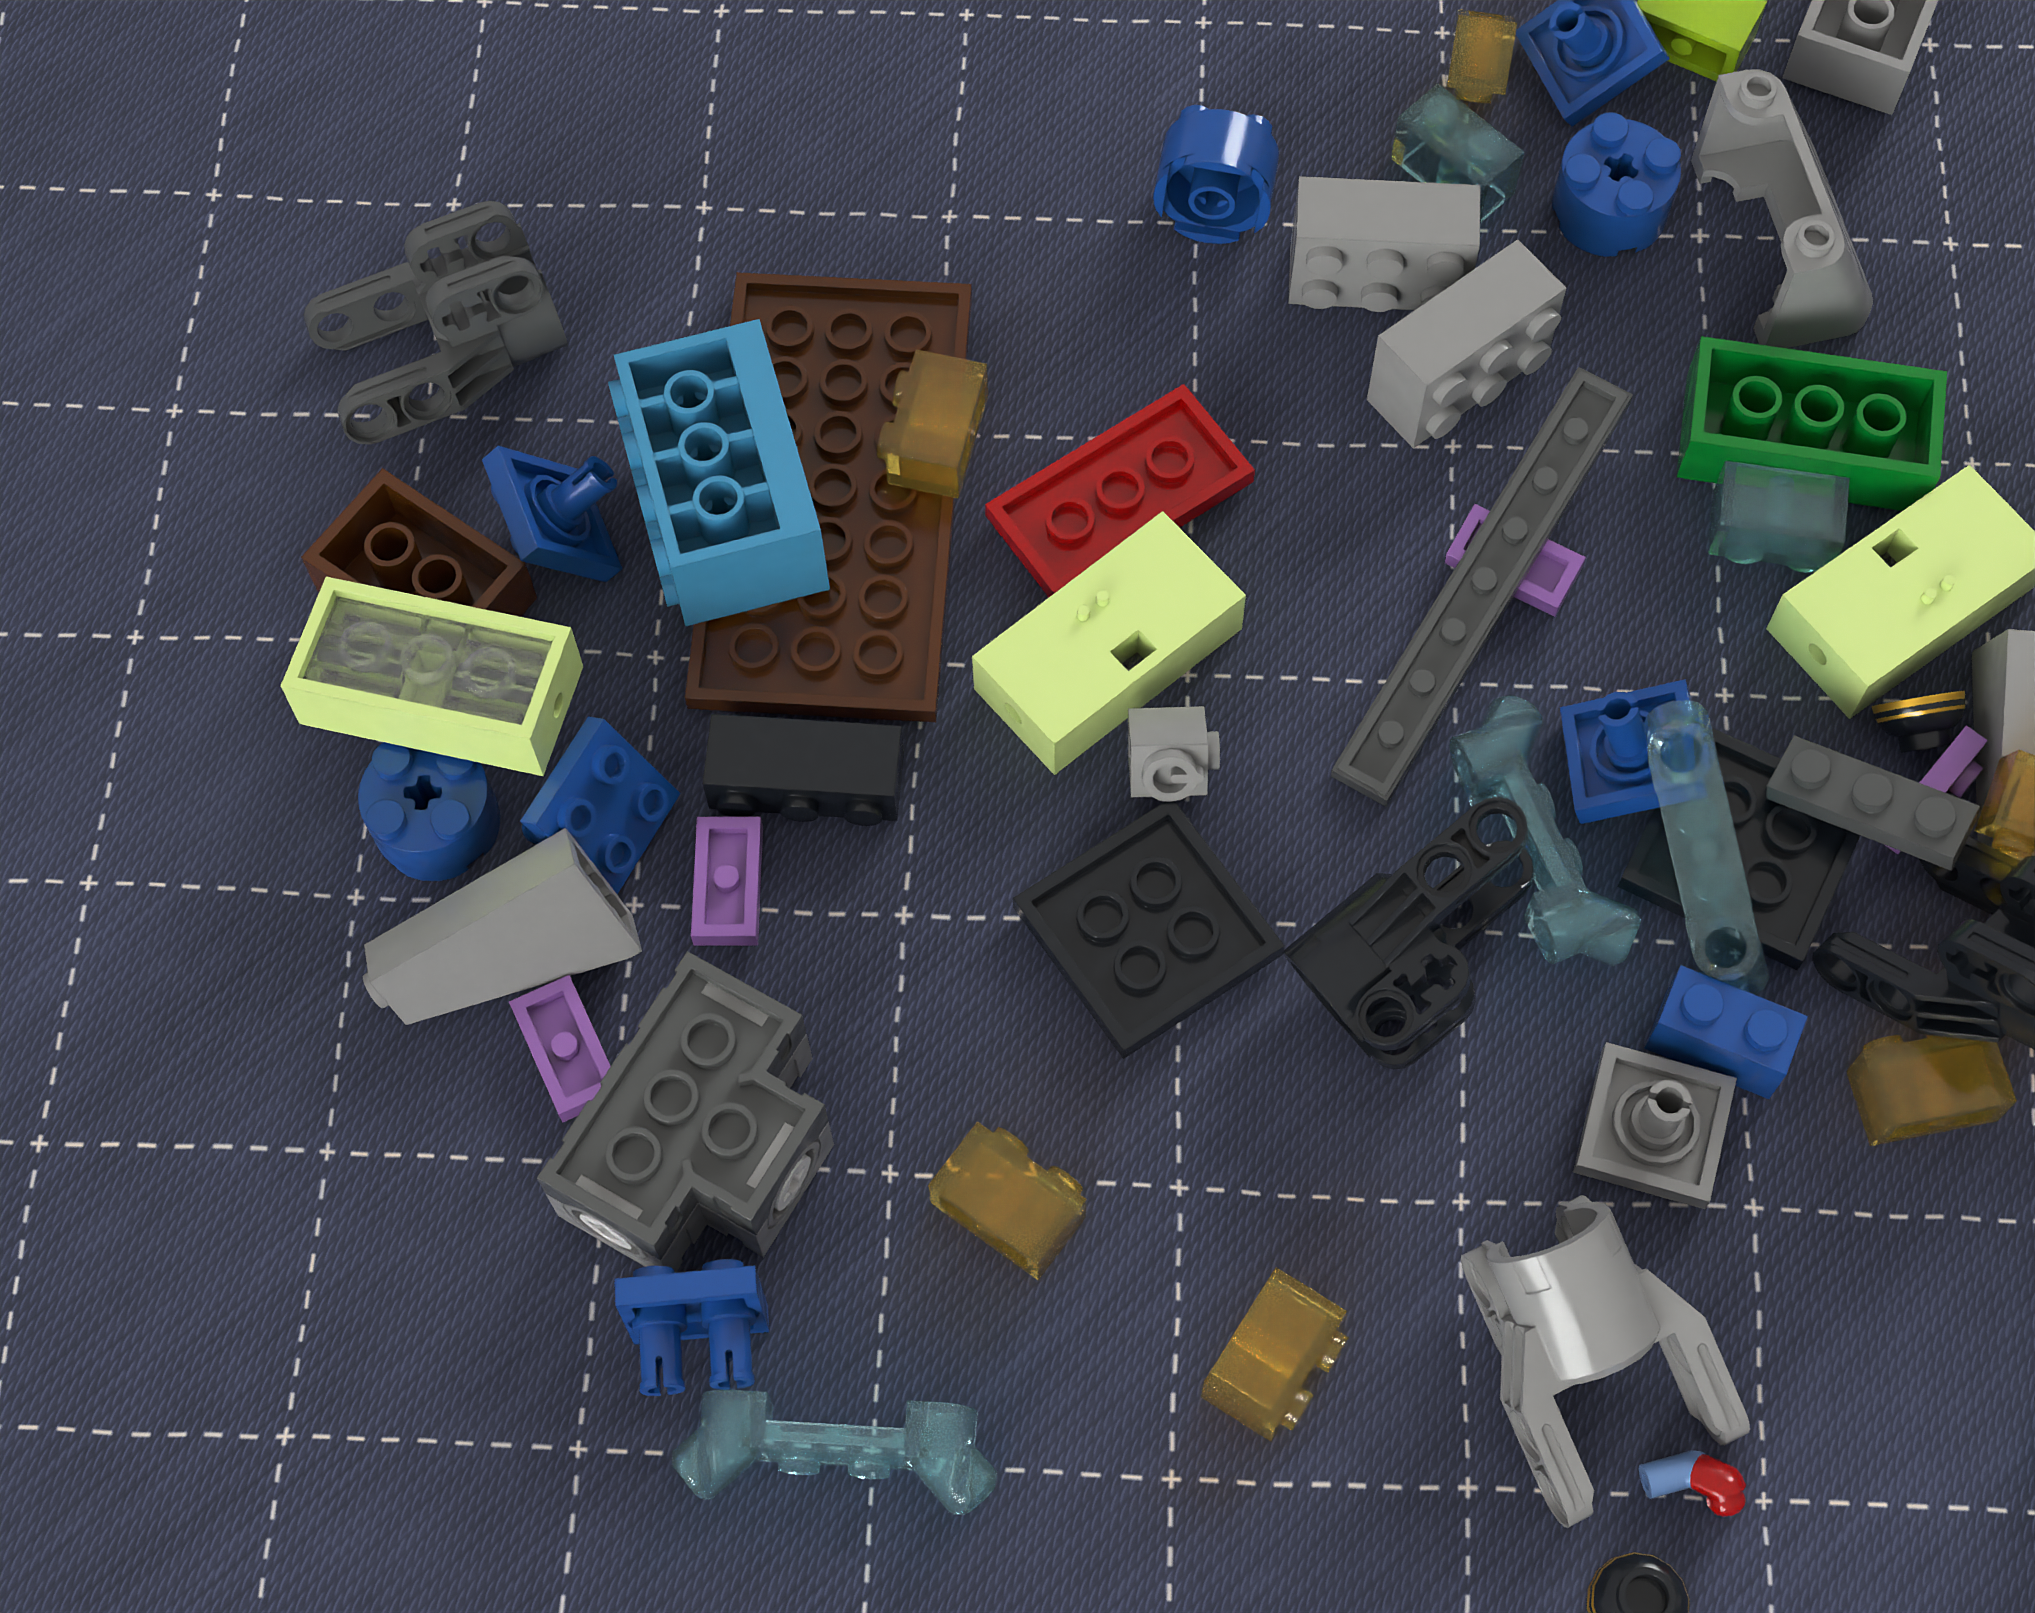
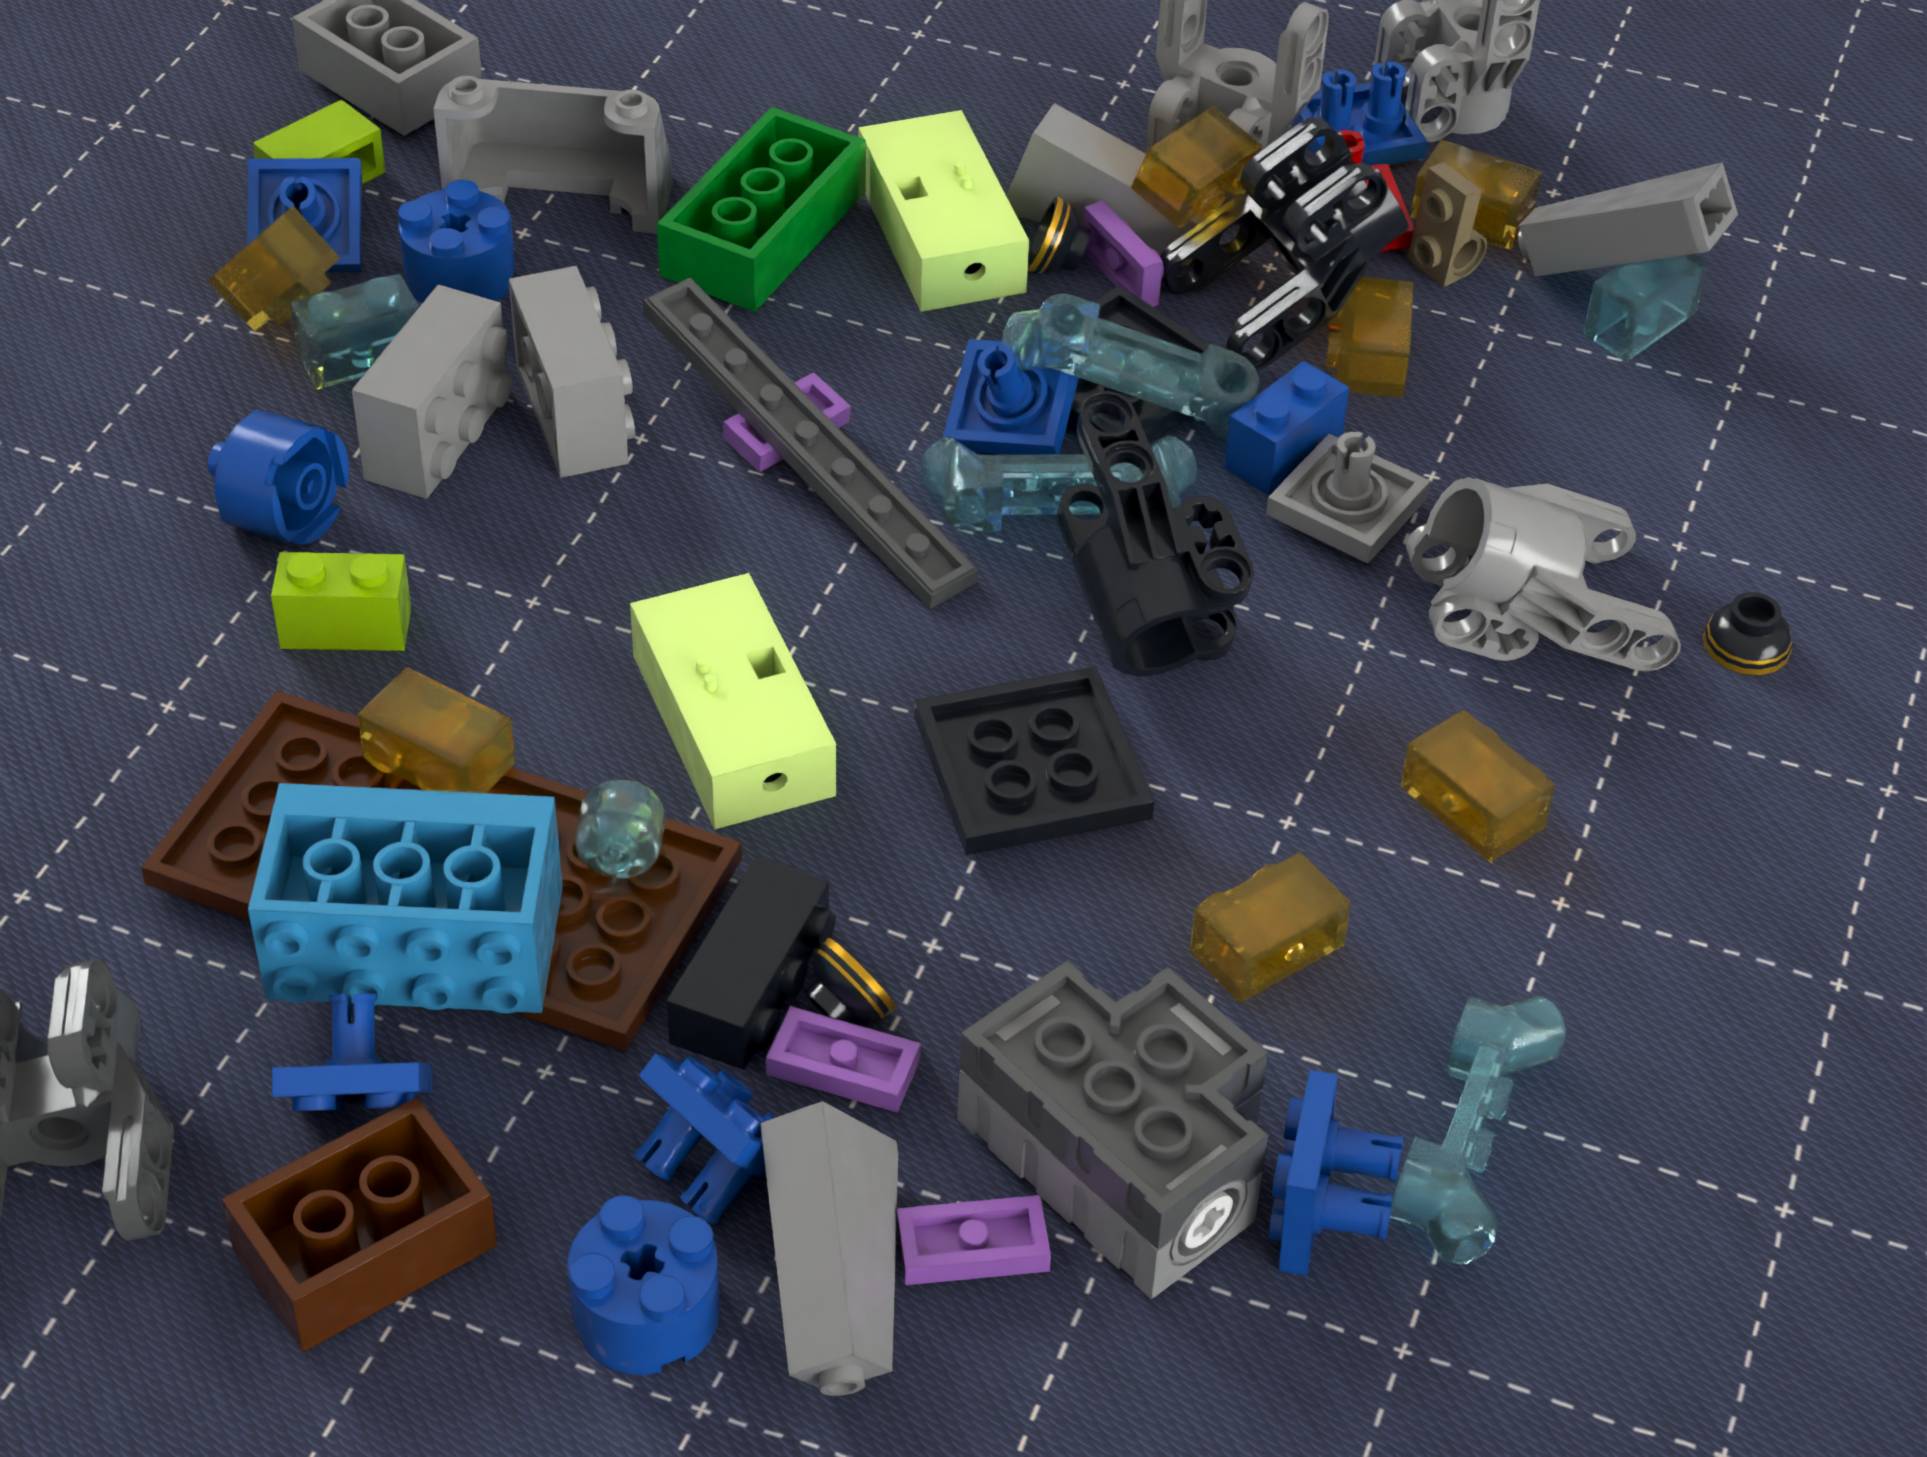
camera: 75 degrees left, 20 degrees down
(433, 675) = (534, 1179): brick -> none
(804, 857) = (845, 988): none -> black piece
(886, 605) = (622, 824): none -> clear light blue head
(1098, 288) = (341, 601): none -> lime brick
(1110, 487) = (571, 657): red plate -> none
(1170, 752) = (870, 686): light grey brick -> none
(1699, 1472) = (1647, 570): arm -> none
(1778, 516) = (832, 259): clear light blue brick -> none
(1872, 802) = (1141, 263): dark grey plate -> none

